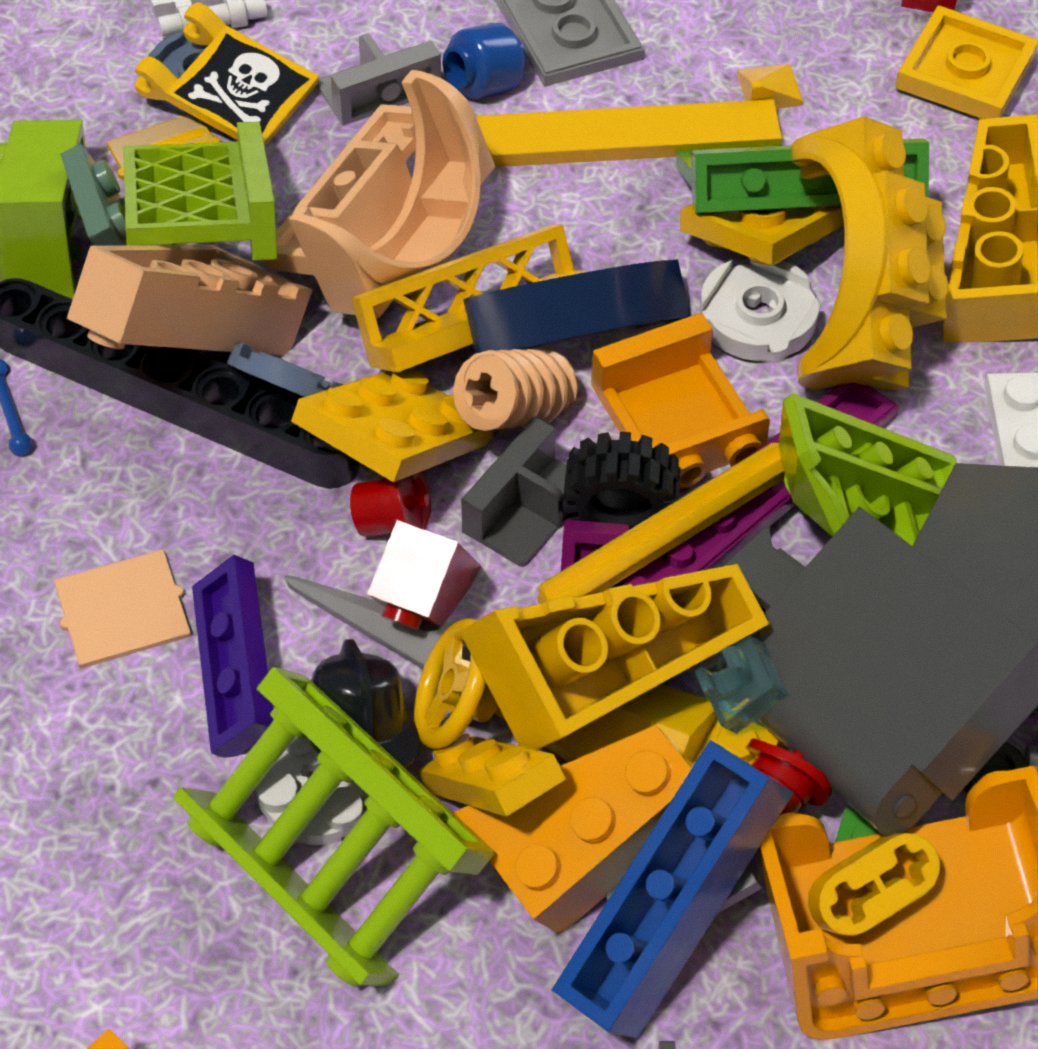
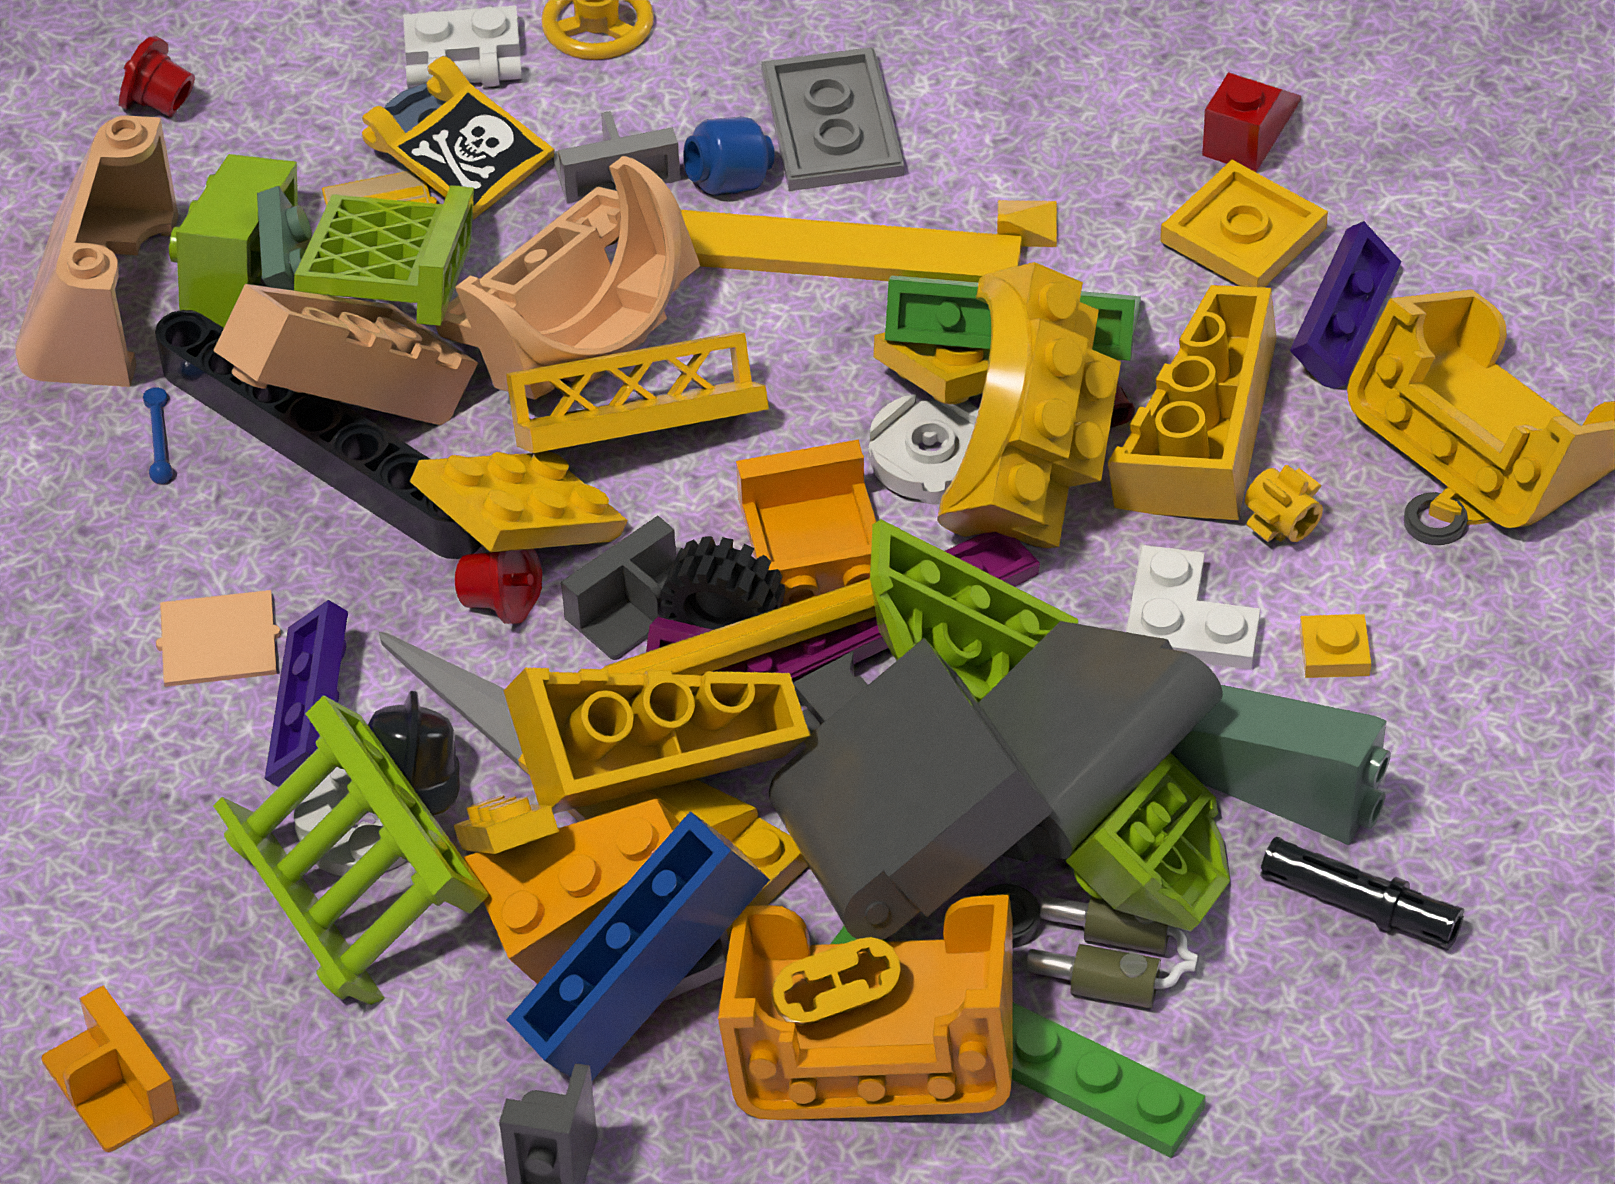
camera: 15 degrees right, 5 degrees down
(278, 371) = (416, 434): sand blue tile -> none
(421, 577) = (497, 642): slope -> none
(459, 691) = (494, 758): yellow piece -> none
(513, 387) = (646, 482): light nougat piece -> none
(577, 306) = (737, 415): dark blue slope -> none
(742, 684) = (770, 788): clear light blue tile -> none
(792, 772) = (790, 880): red piece -> none

